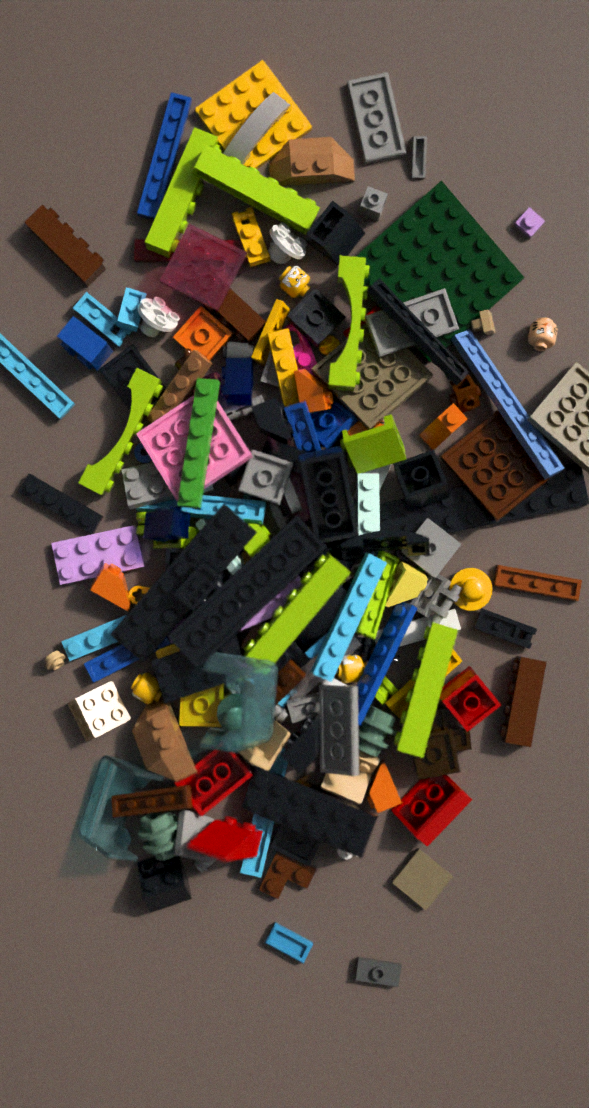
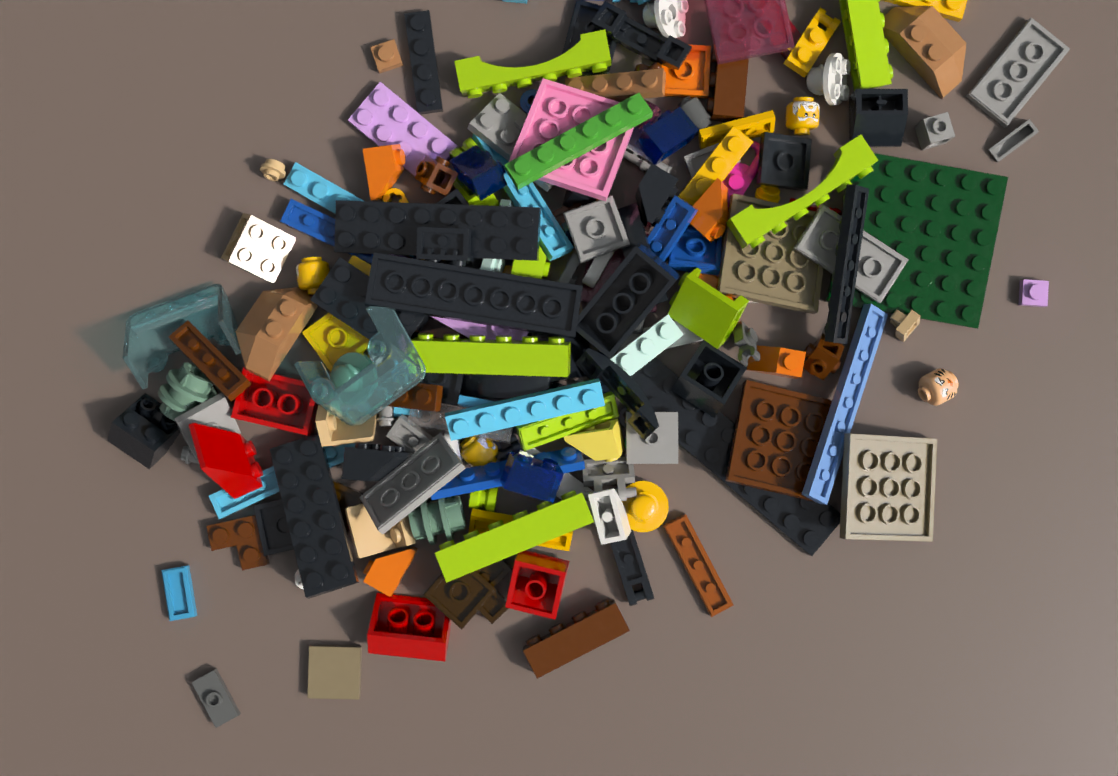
camera: 50 degrees right, 0 degrees up
(37, 525) = (386, 56): none -> medium nougat plate
(145, 555) = (435, 175): none -> reddish brown brick
(159, 348) = (639, 38): none -> black slope
(396, 647) = (532, 476): none -> clear blue brick
(415, 436) = (746, 340): none -> dark grey plate
(461, 616) = (609, 516): none -> white slope

